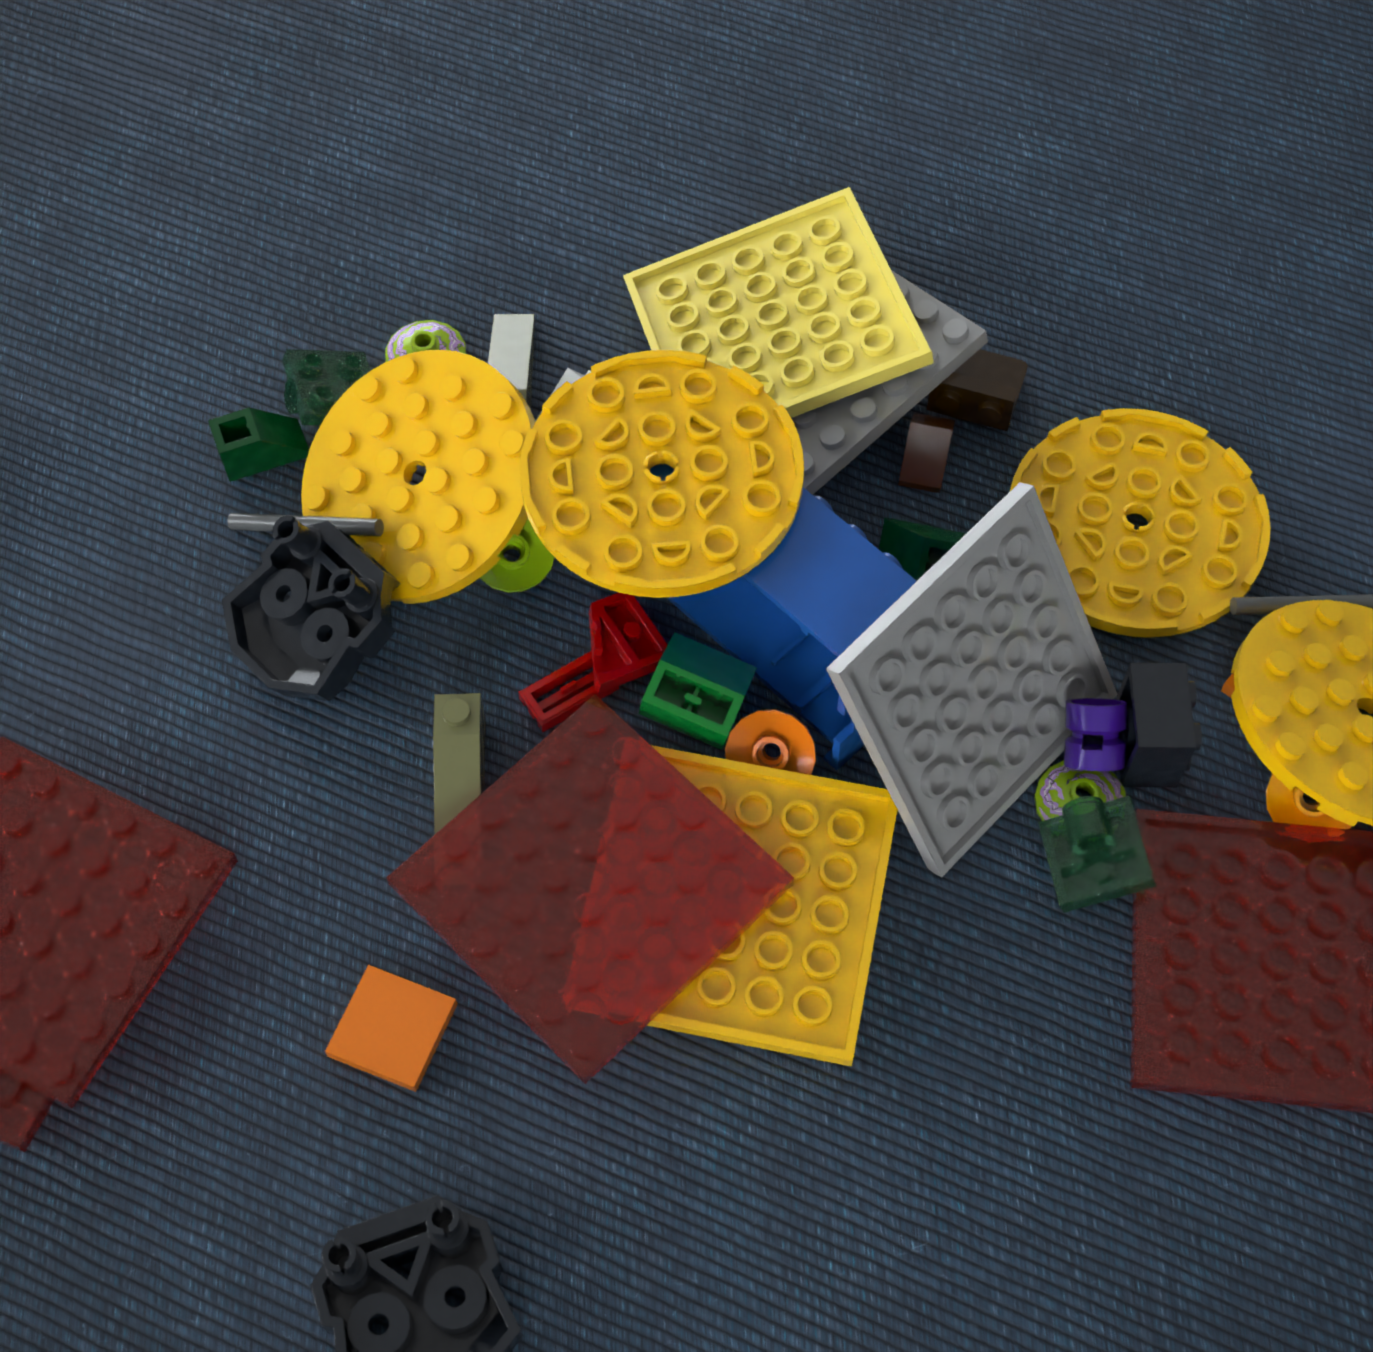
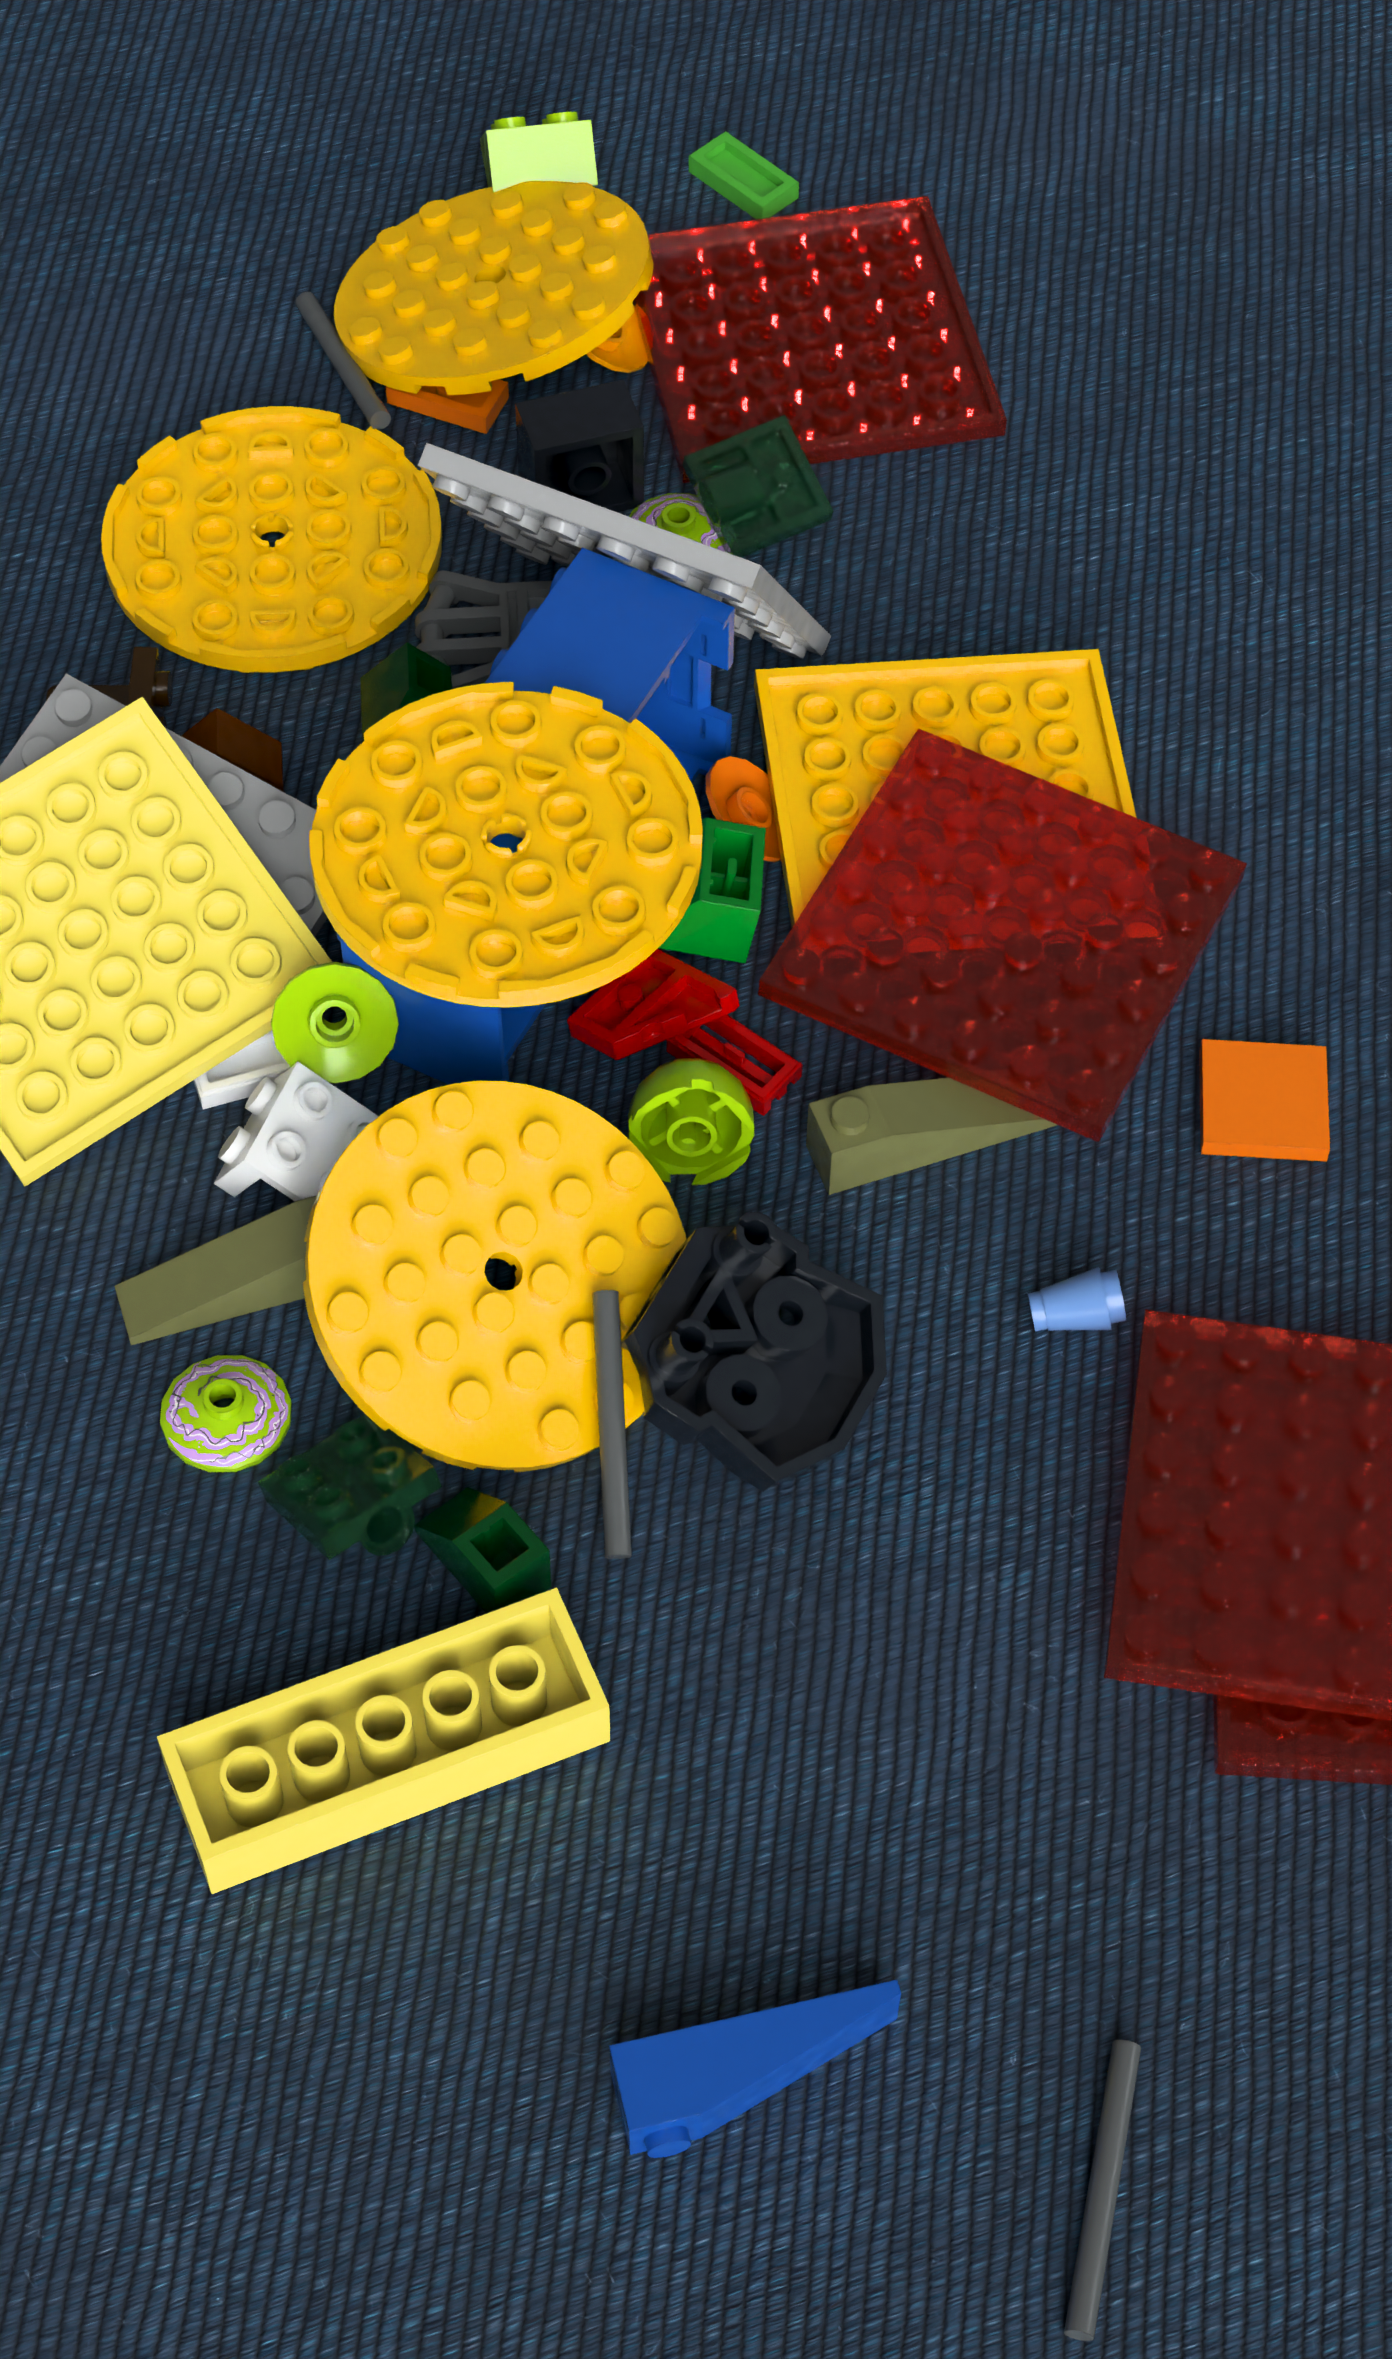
camera: 110 degrees left, 5 degrees down
(160, 367) = (385, 1739): none -> light yellow brick
(276, 835) = (1079, 1303): none -> medium blue cone
(515, 633) = (692, 1120): none -> lime cylinder
(1095, 717) = (615, 490): dark purple wheel -> none

